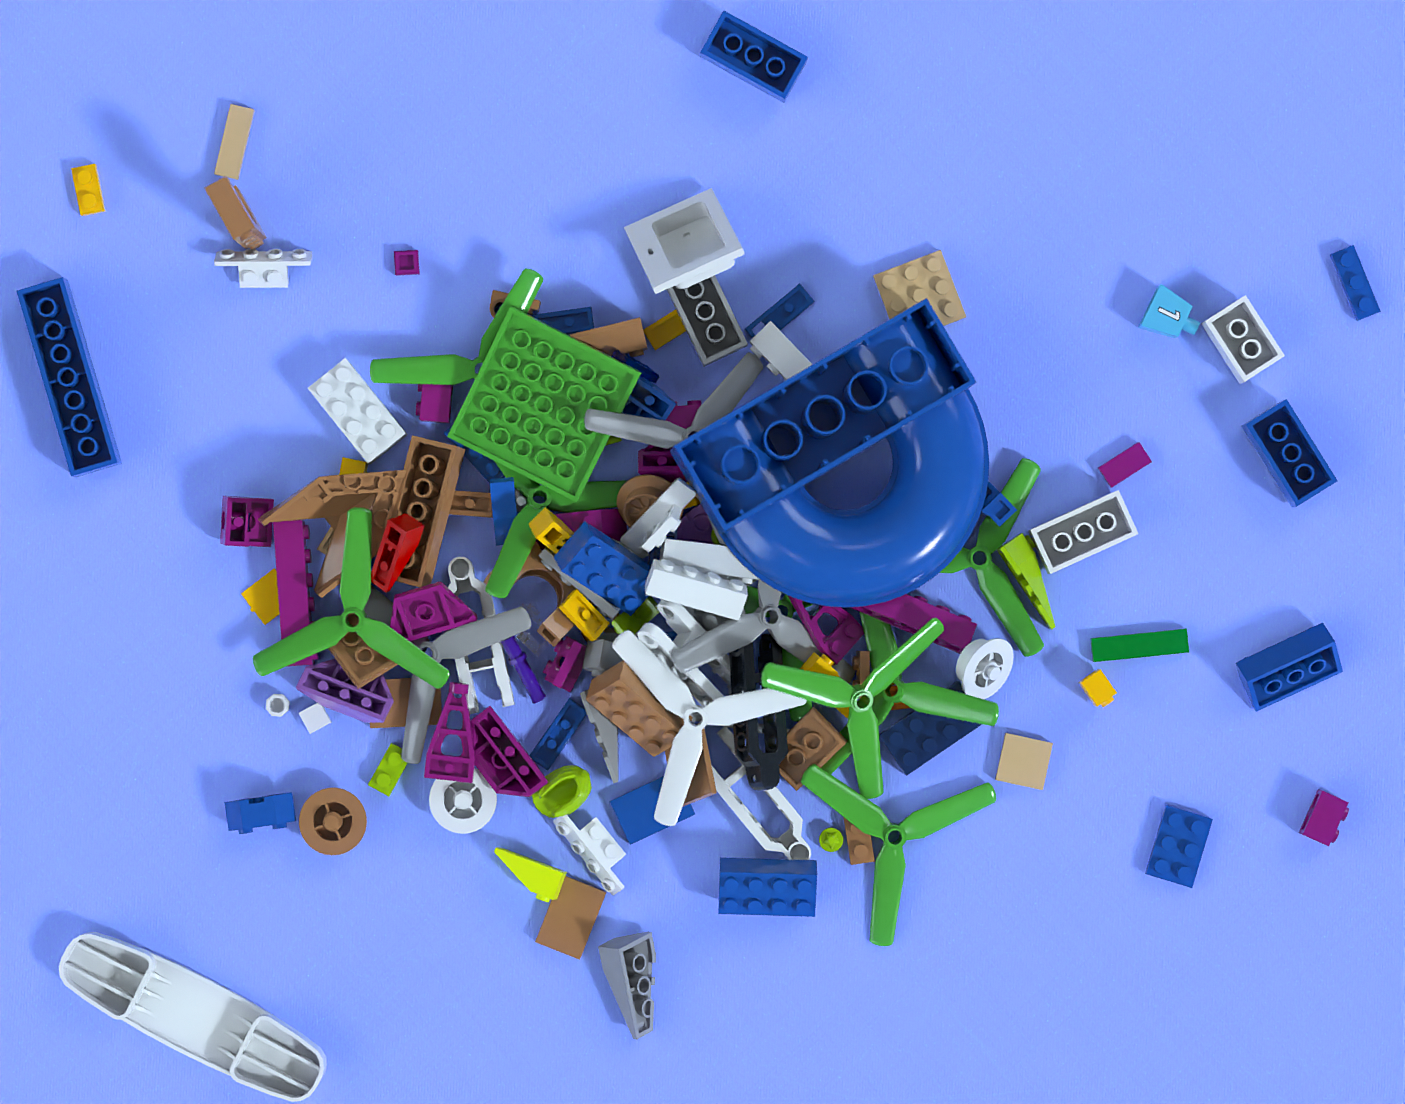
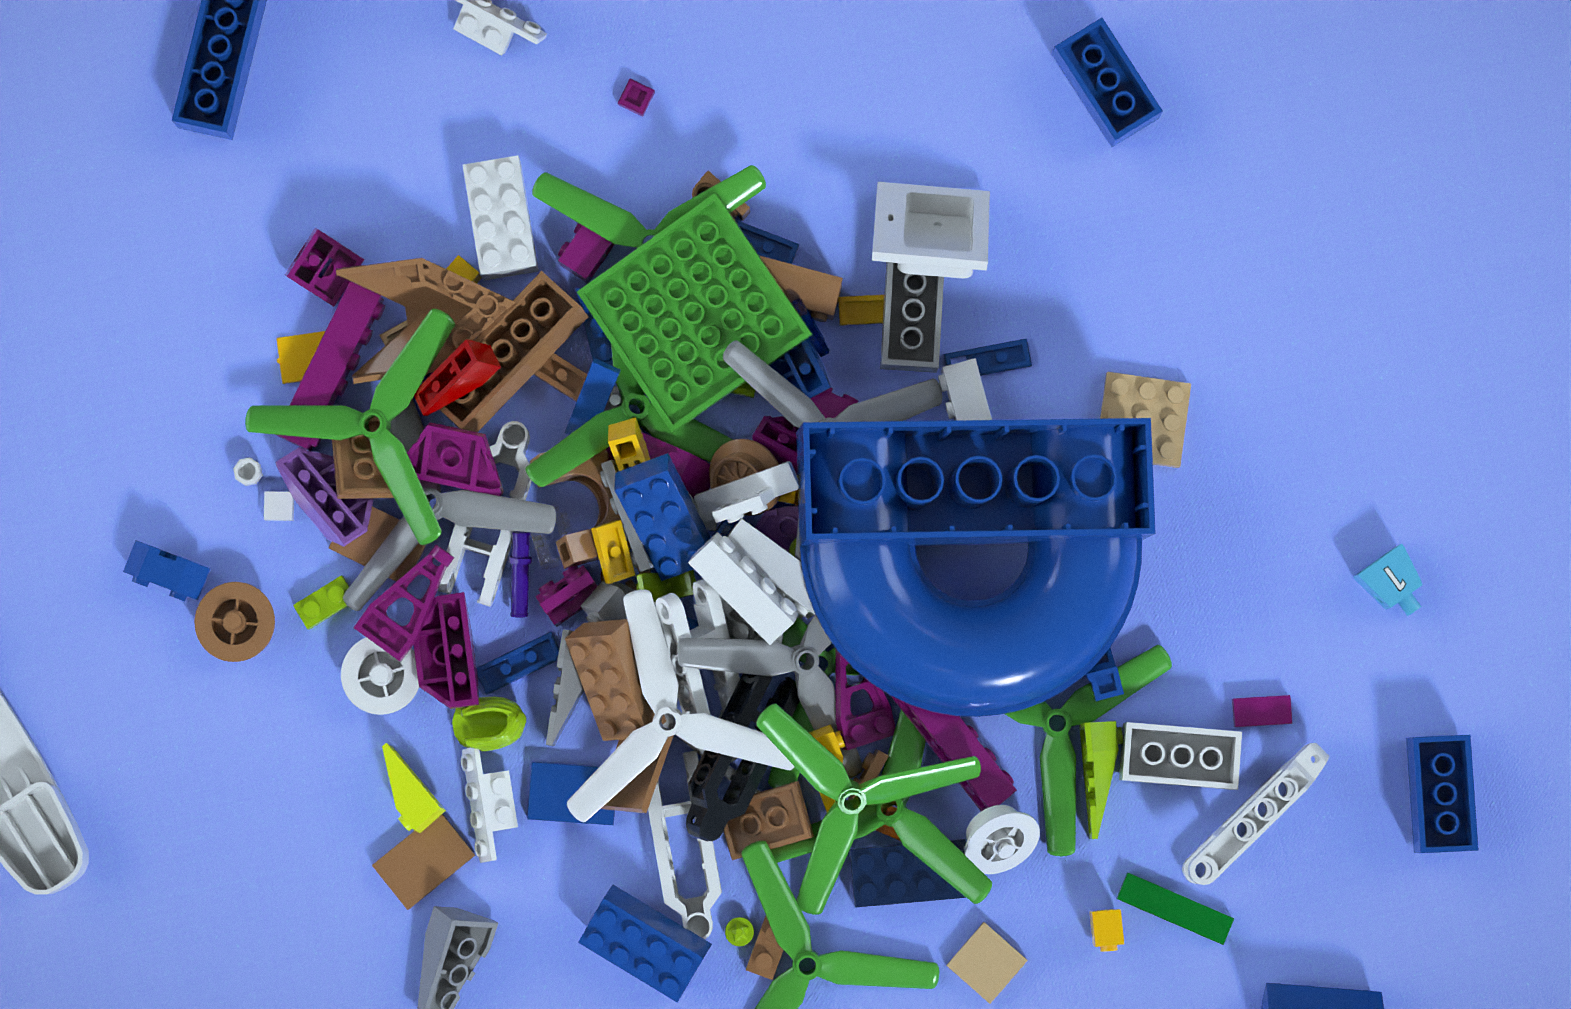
camera: 35 degrees right, 5 degrees down
(1152, 580) = (1226, 845): none -> white piece
(1242, 339) = (1456, 648): white brick -> none

